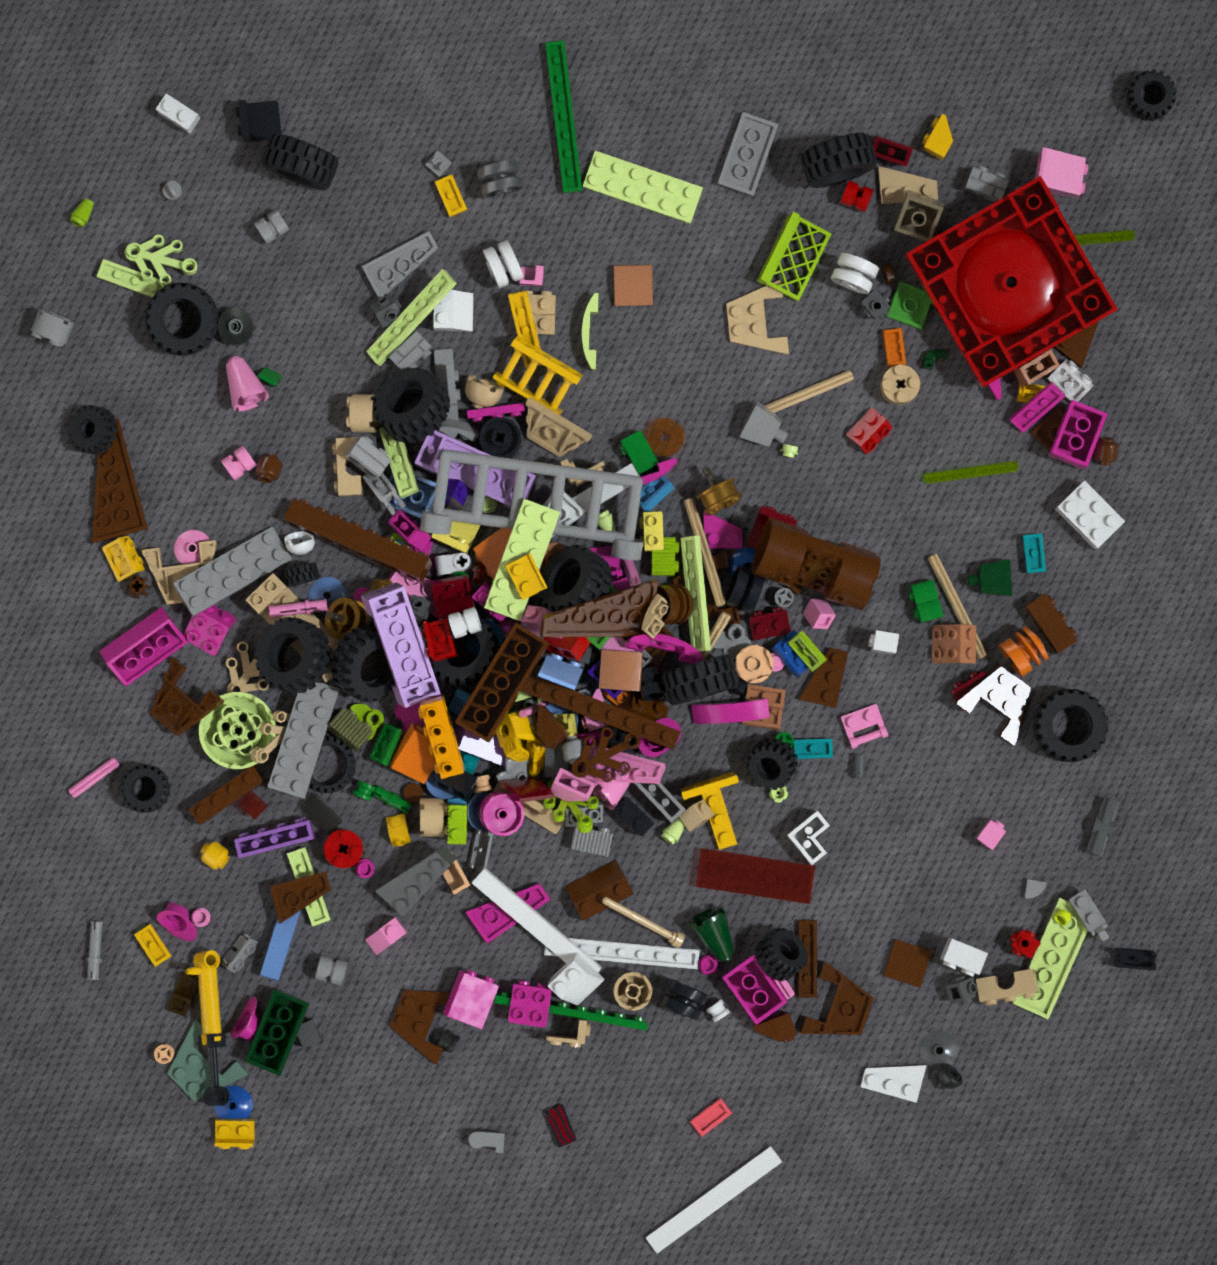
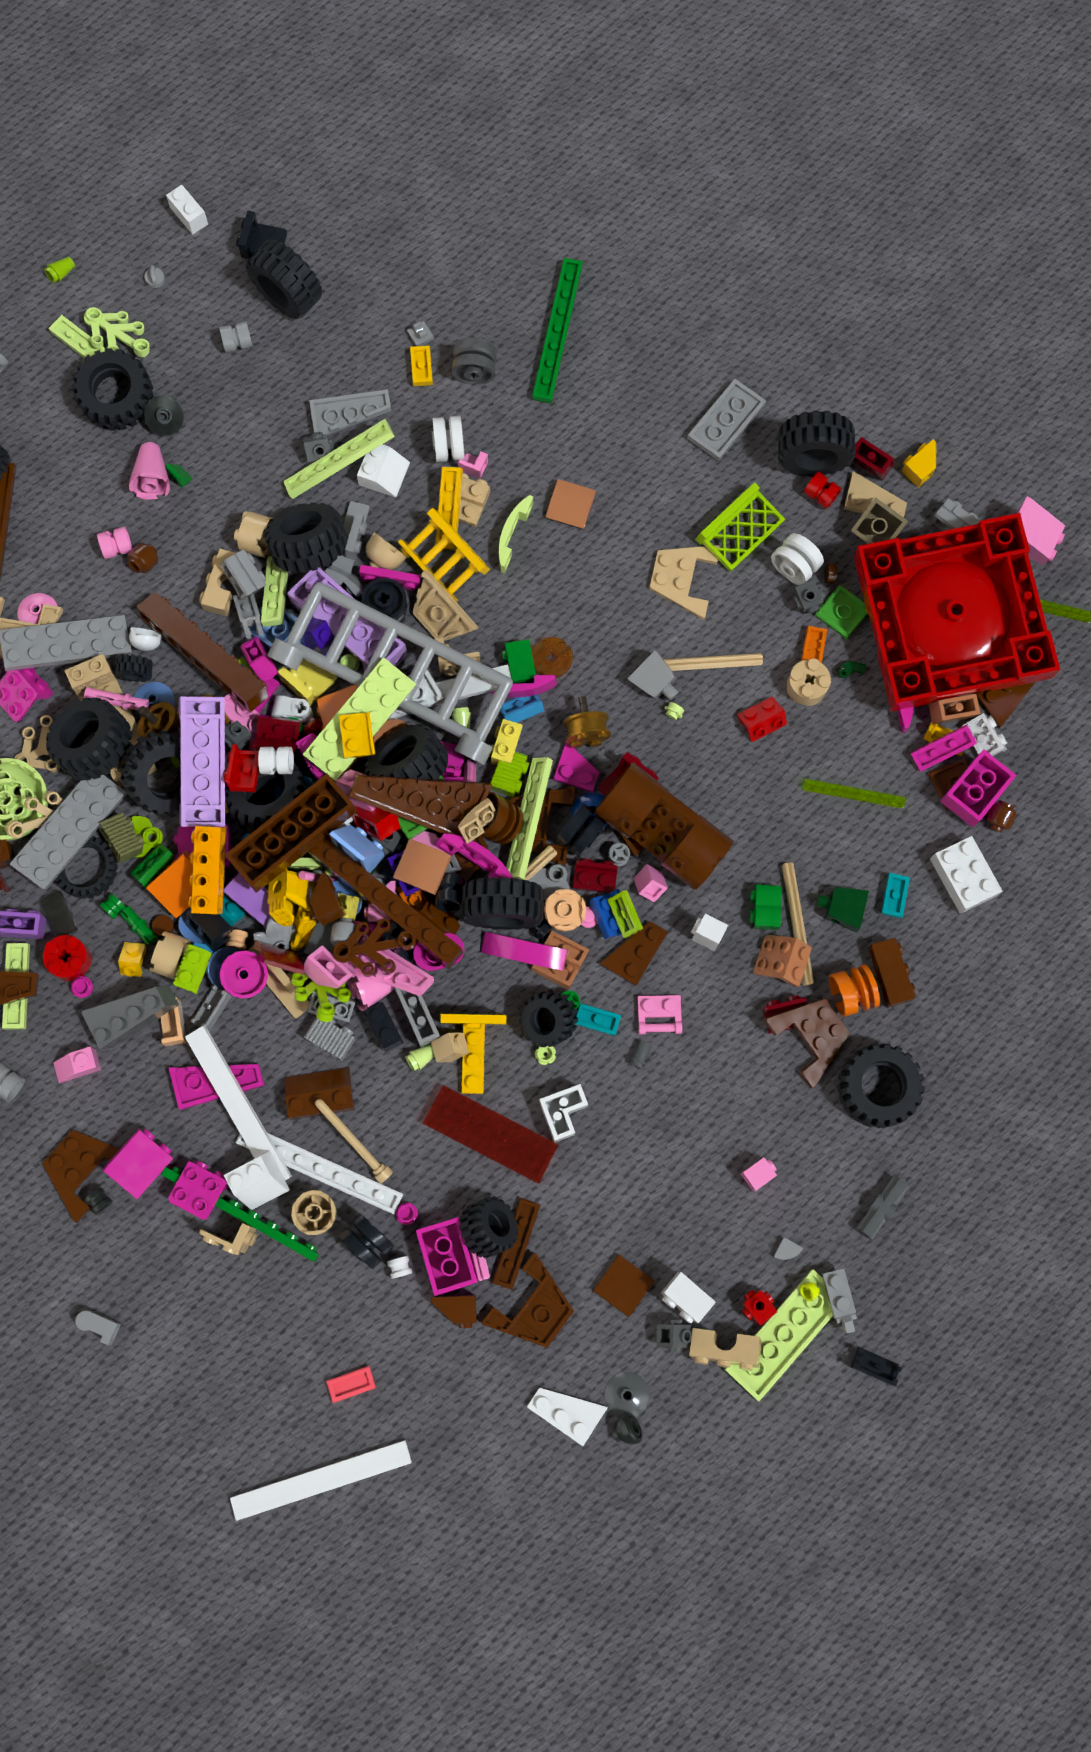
camera: 15 degrees right, 10 degrees down
(411, 352) = (329, 491): light grey brick -> none
(560, 1125) = (183, 1337): tile -> none
(642, 187) = (612, 418): yellowish green plate -> none
(705, 551) = (553, 782): tan axle -> none
(714, 933) = (425, 1181): dark green cone -> none

